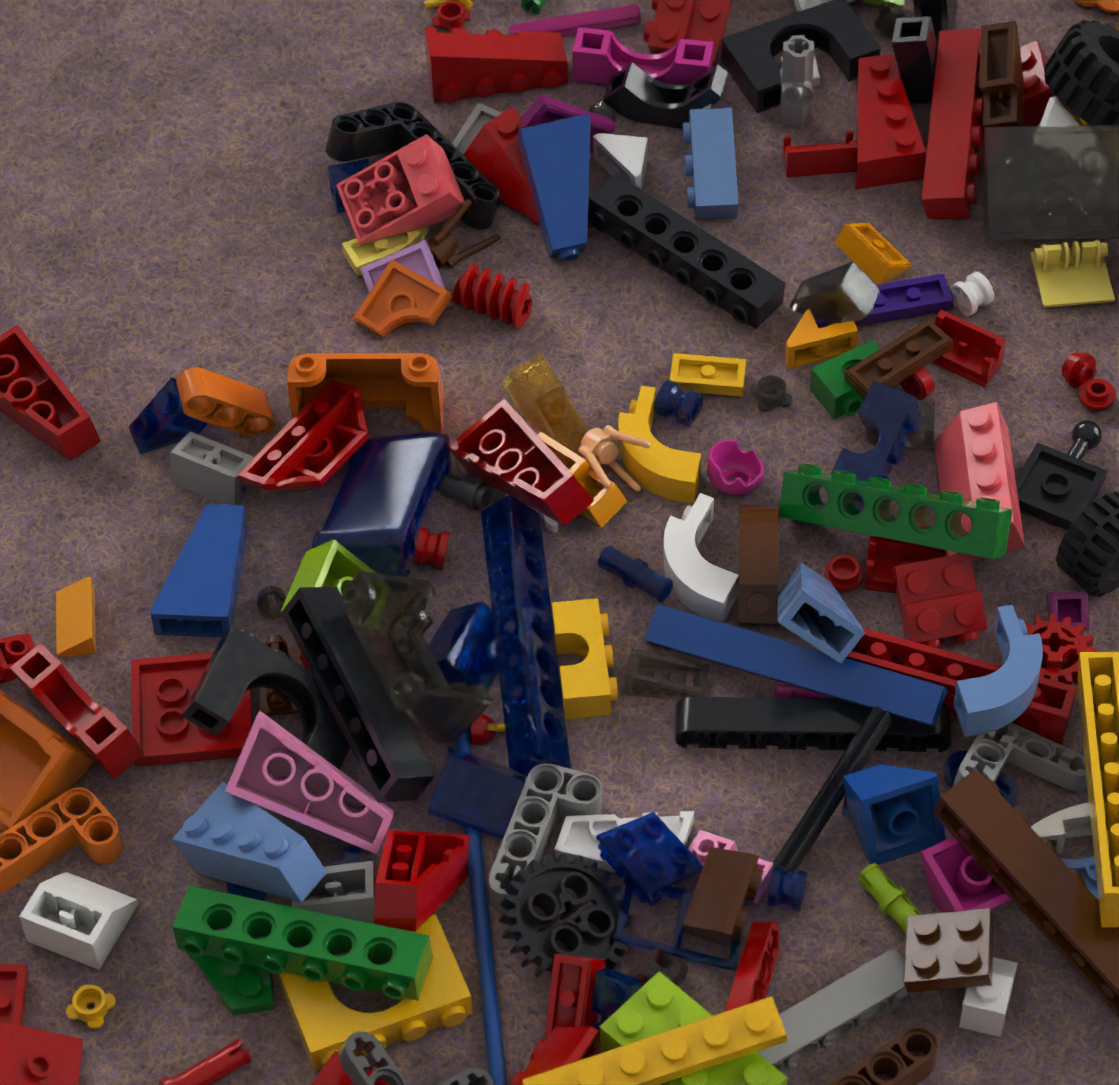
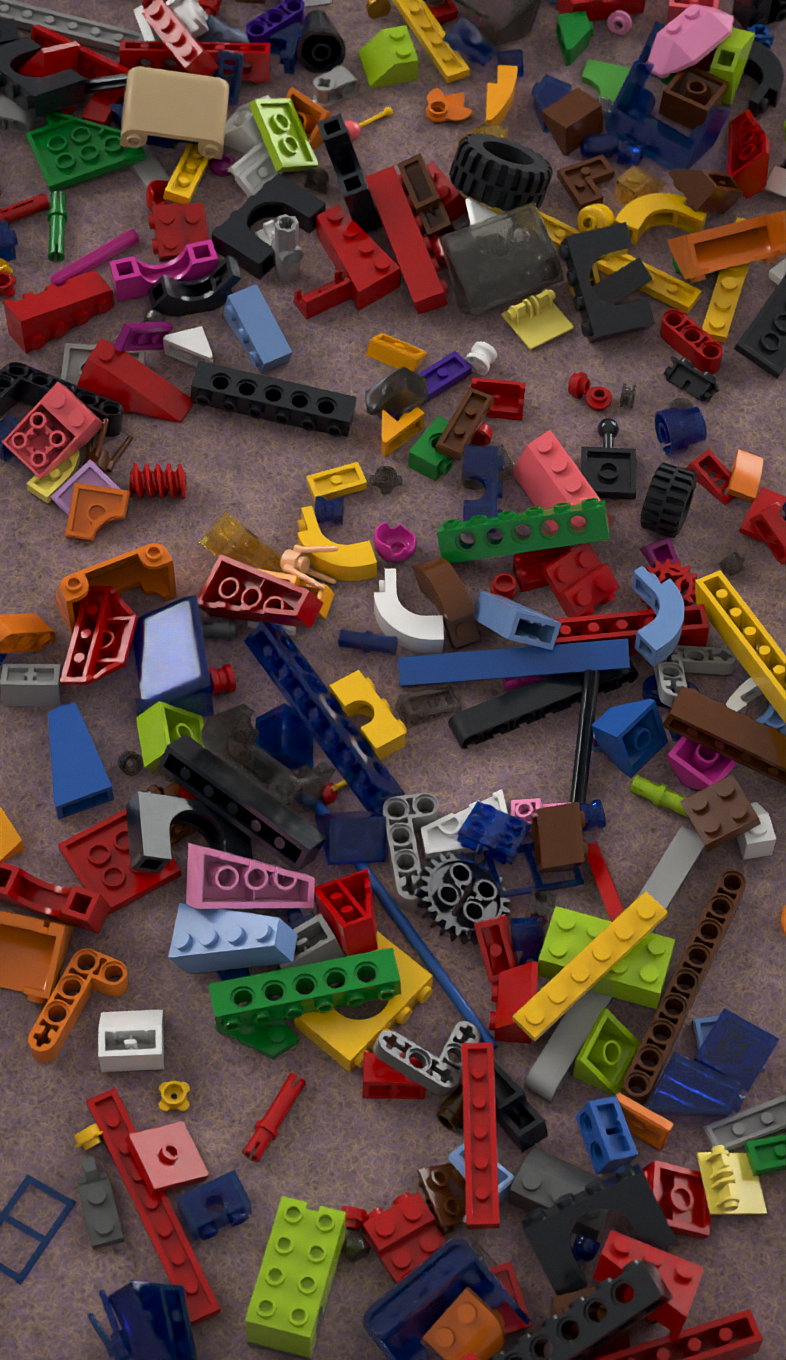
camera: 30 degrees left, 5 degrees up
(558, 178) = (162, 381): blue slope -> none

